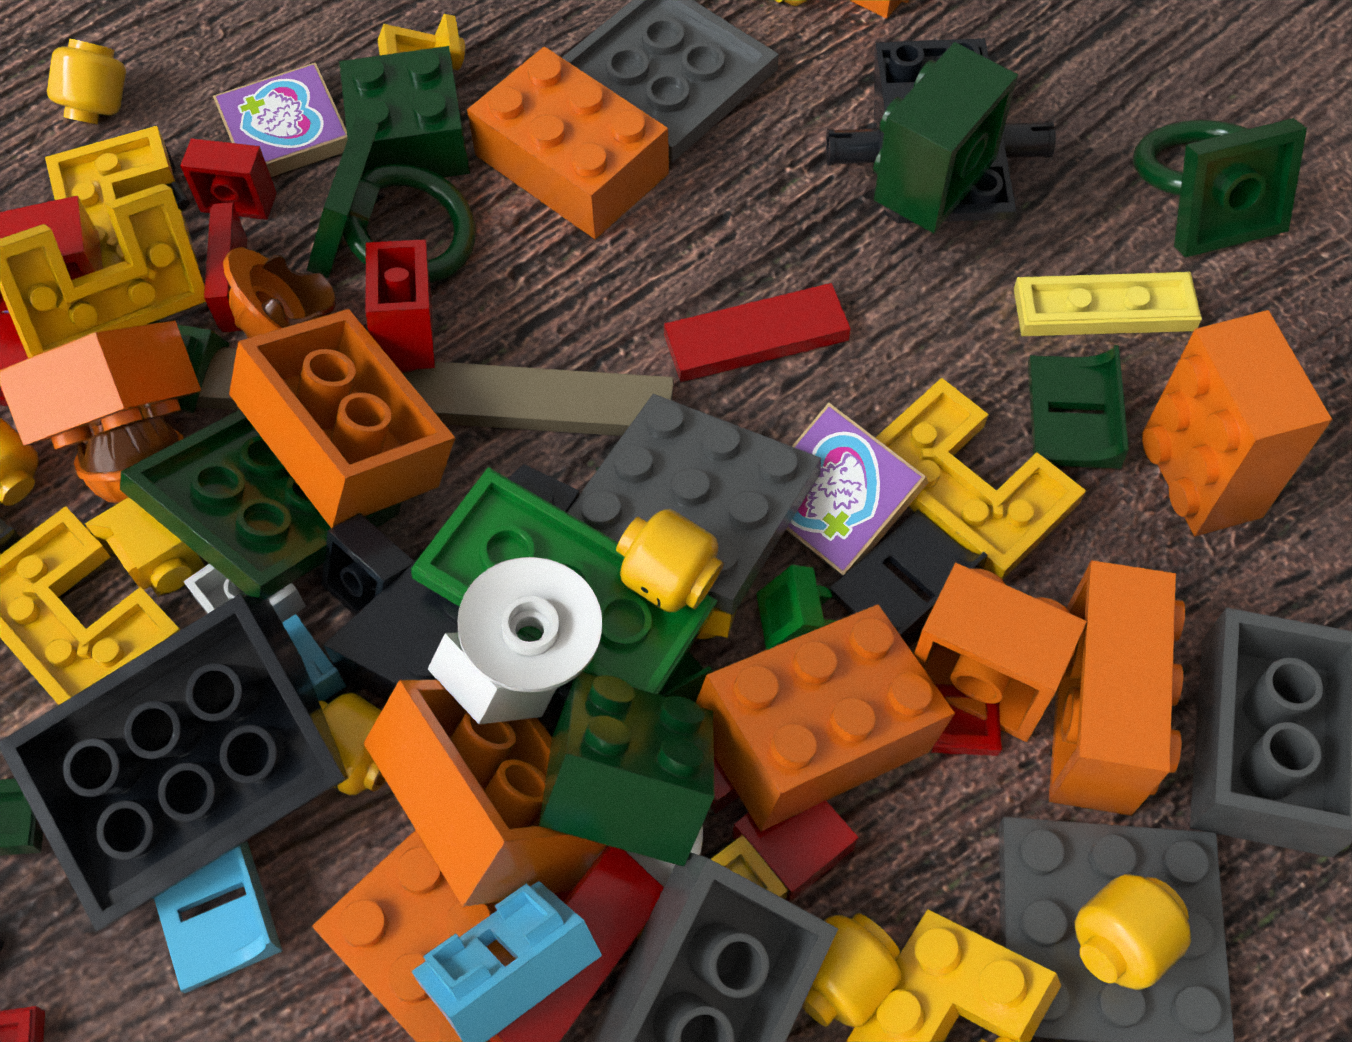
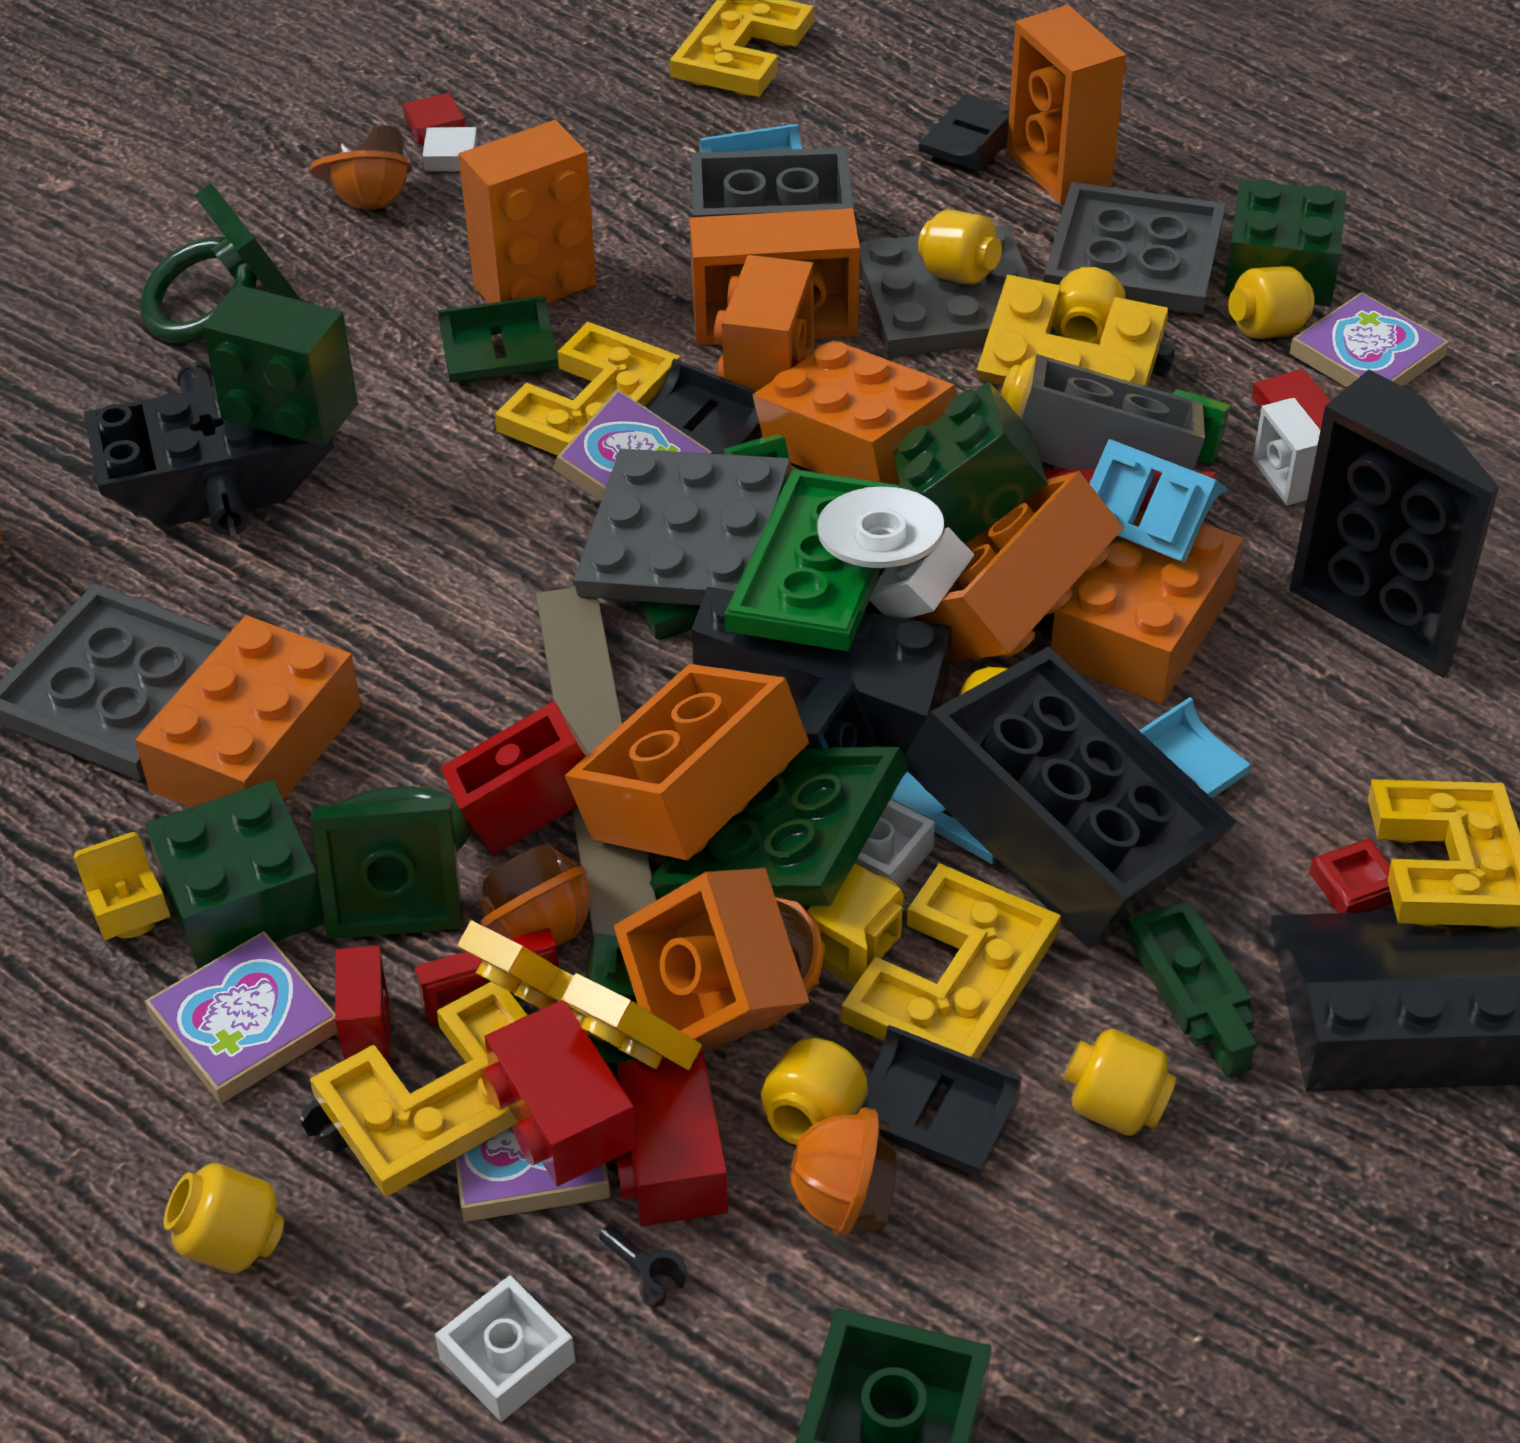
camera: 105 degrees left, 15 degrees down
(669, 560) = (783, 470): yellow head -> none
(756, 332) = (462, 555): red tile -> none
(1107, 304) = (374, 347): light yellow tile -> none

